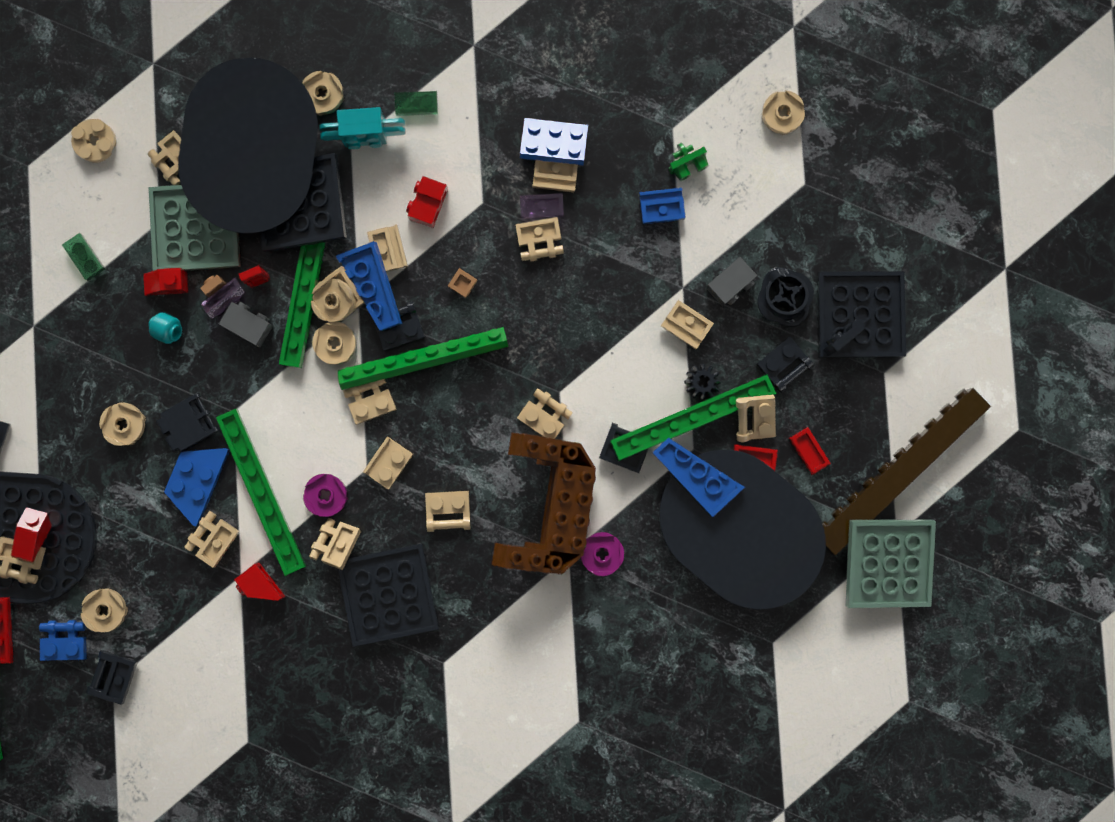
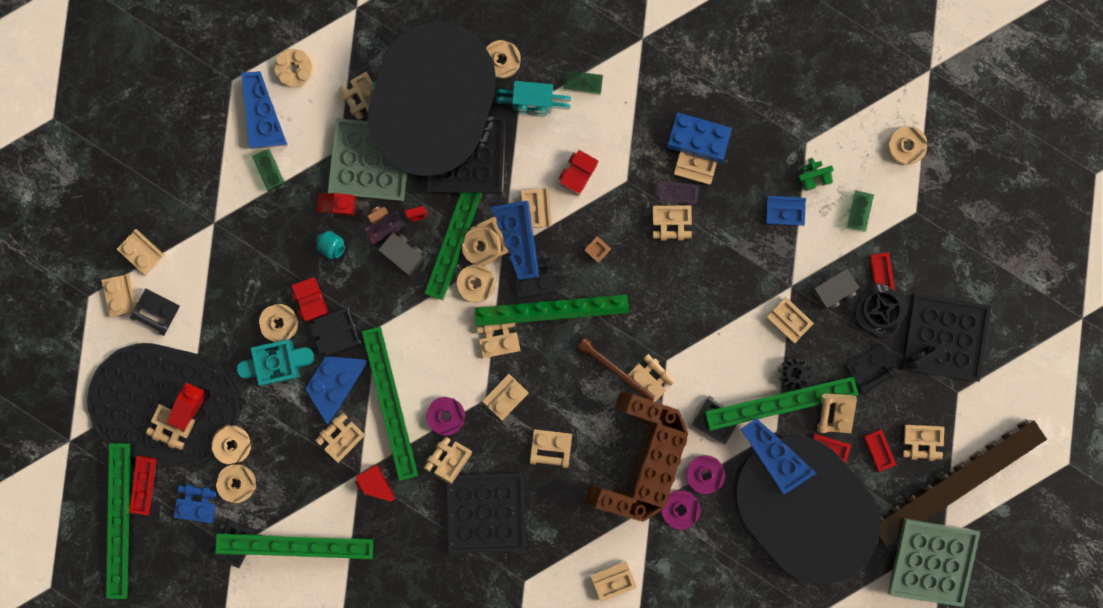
camera: 20 degrees right, 0 degrees up
(66, 203) = (261, 117): none -> blue wing
(83, 557) = (231, 455): none -> tan plate
(124, 468) = (275, 362): none -> teal brick
(152, 392) = (310, 300): none -> red brick
(178, 669) = (294, 546): none -> green plate
(467, 392) = (587, 348): none -> reddish brown piece
(541, 646) = (613, 581): none -> tan plate
(633, 503) = (714, 468): none -> magenta plate
(743, 192) = (860, 211): none -> clear green plate
(778, 252) = (881, 269): none -> red tile
(854, 426) = (923, 435): none -> tan plate

